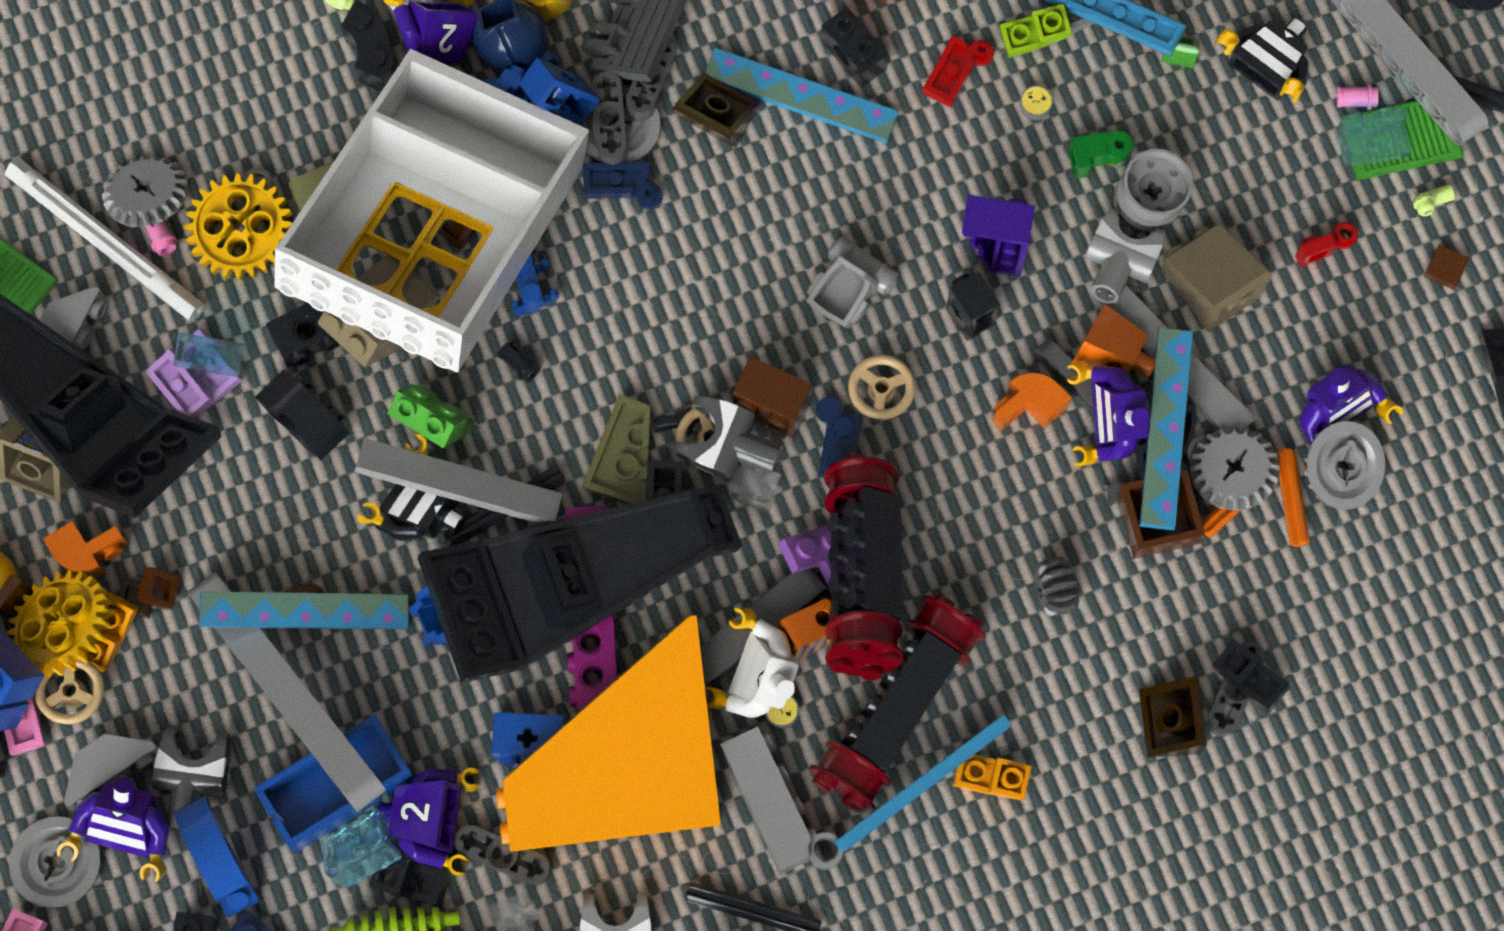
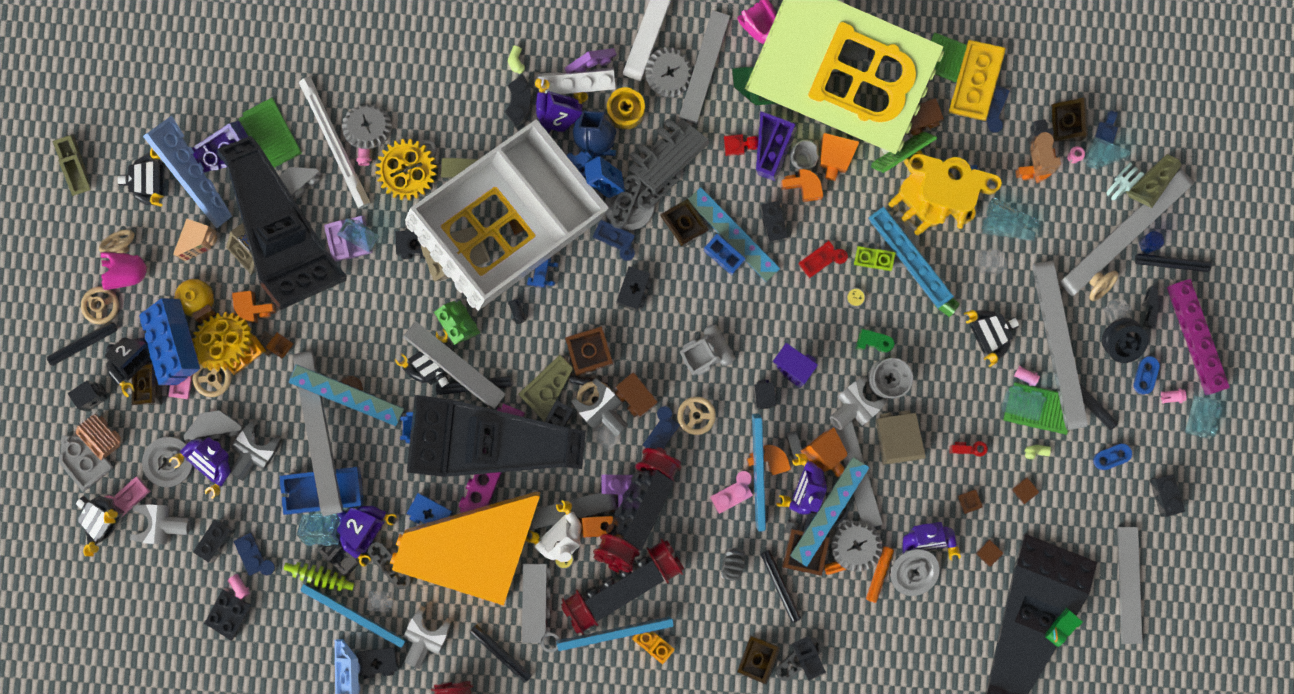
camera: 25 degrees right, 10 degrees up
(215, 857) = (245, 499): blue arch -> none
(302, 414) = (394, 292): black brick -> none
(663, 366) = (589, 351): none -> reddish brown brick
(684, 261) = (632, 278): none -> black brick
(802, 126) = (724, 254): none -> blue brick
(1000, 482) = (733, 494): none -> bright pink hinge
(1024, 422) = (758, 457): none -> dark azure tile
(1147, 589) = (780, 586): none -> black axle
(1371, 323) = (969, 501): none -> reddish brown tile
(1442, 386) = (989, 553): none -> reddish brown tile

